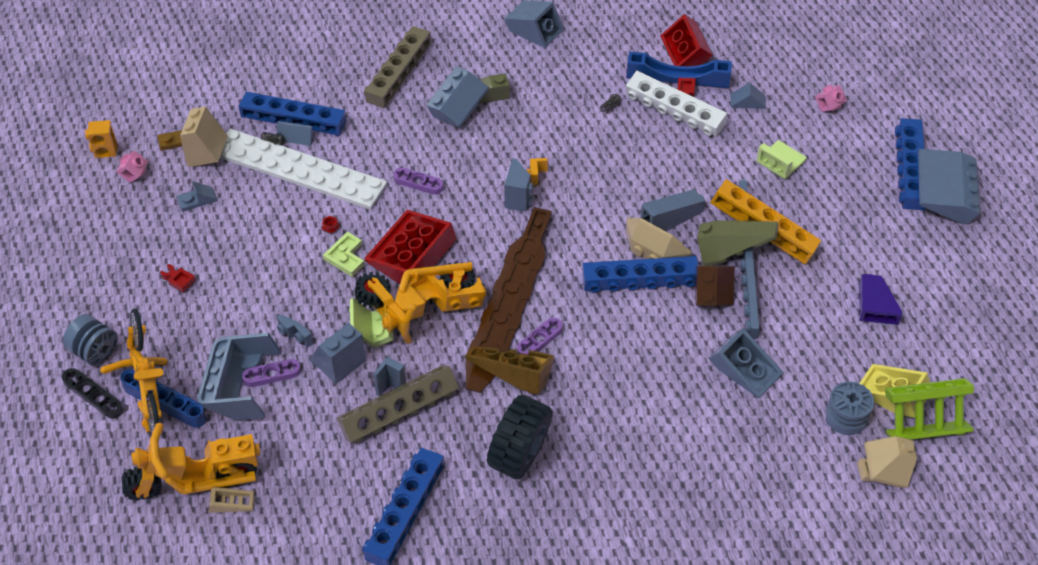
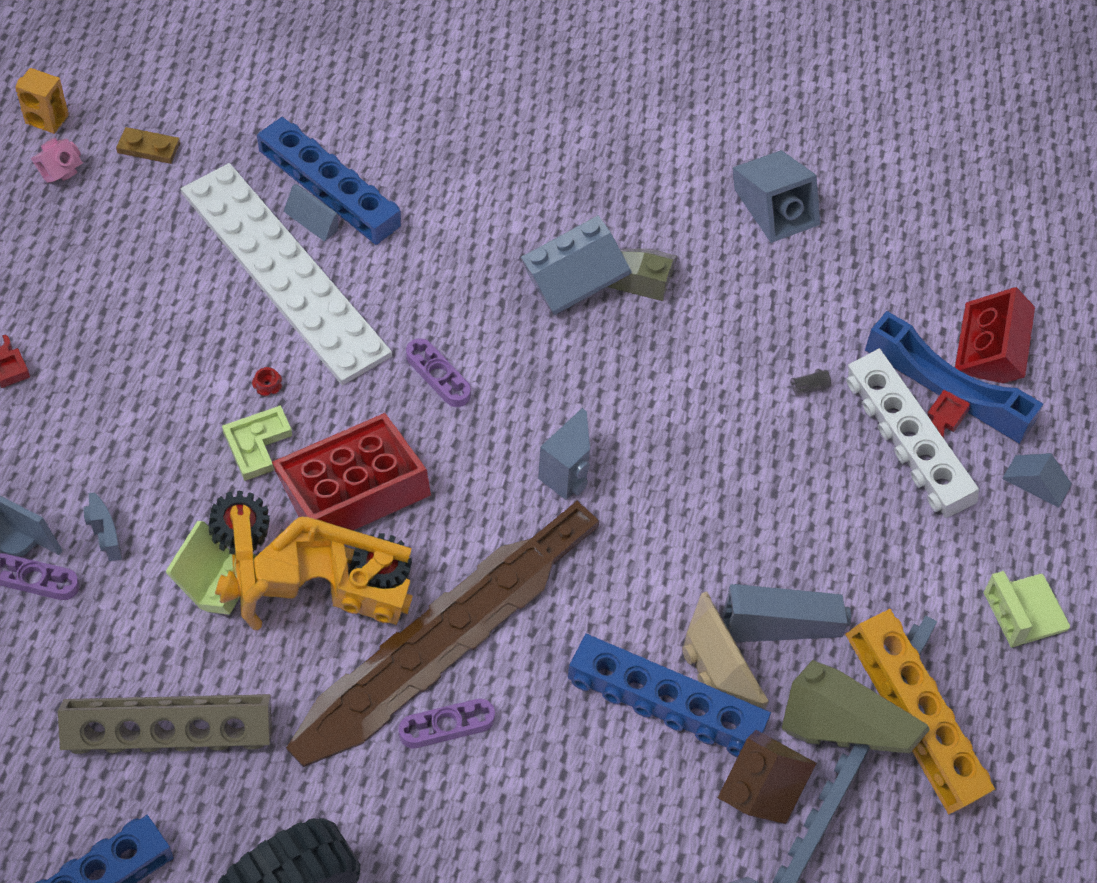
camera: 25 degrees right, 5 degrees up
(198, 197) = (117, 248): sand blue slope -> none
(202, 138) = (169, 161): tan slope -> none
(277, 139) = (280, 209): clear smoke pin -> none
(340, 353) = (135, 600): sand blue slope -> none
(389, 374) = (173, 669): sand blue panel -> none
(397, 67) = (526, 174): dark tan brick -> none
(521, 370) = (376, 758): pearl gold wedge -> none
(537, 165) = (622, 432): light orange bracket -> none

